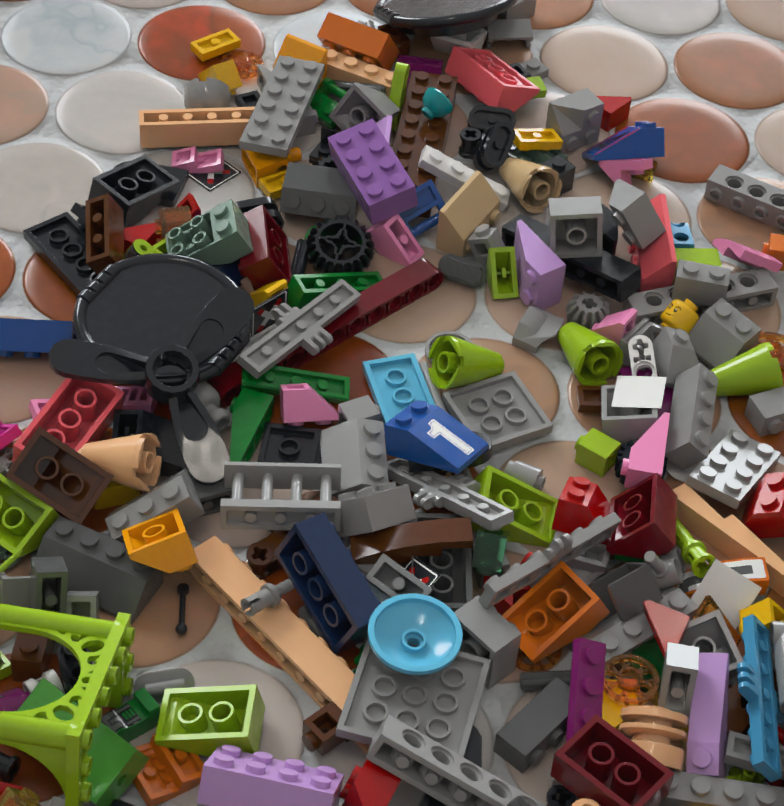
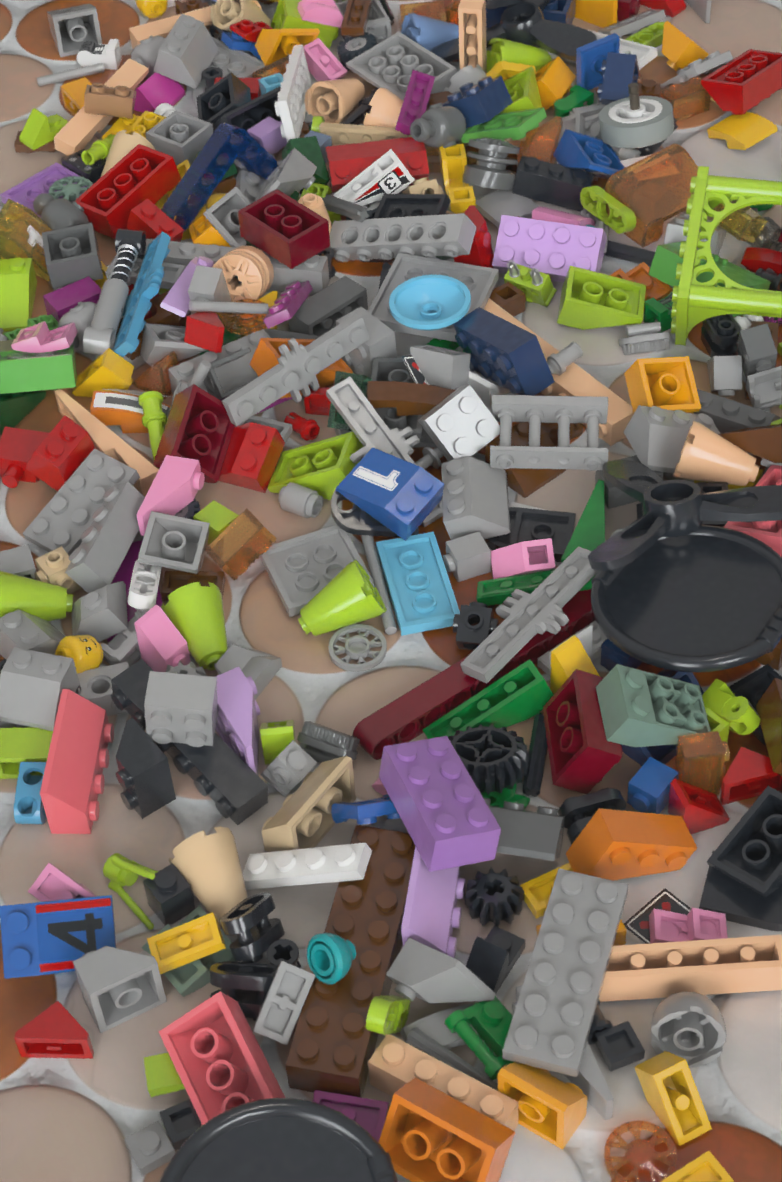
camera: 170 degrees left, 0 degrees up
(236, 180) = (630, 845): none -> orange wedge
(297, 742) = (535, 284): none -> lime piece
(355, 341) = (473, 625): none -> black brick
(461, 106) = (283, 1002): none -> light grey hinge
(568, 418) = (240, 544): none -> clear orange brick
(594, 189) = (125, 873): none -> lime plant
(635, 214) = (94, 741): light grey slope -> none
(639, 392) = (160, 548): white sticker -> none
(647, 654) = (228, 307): none -> light grey bar
(731, 405) = (52, 570): none -> tan brick

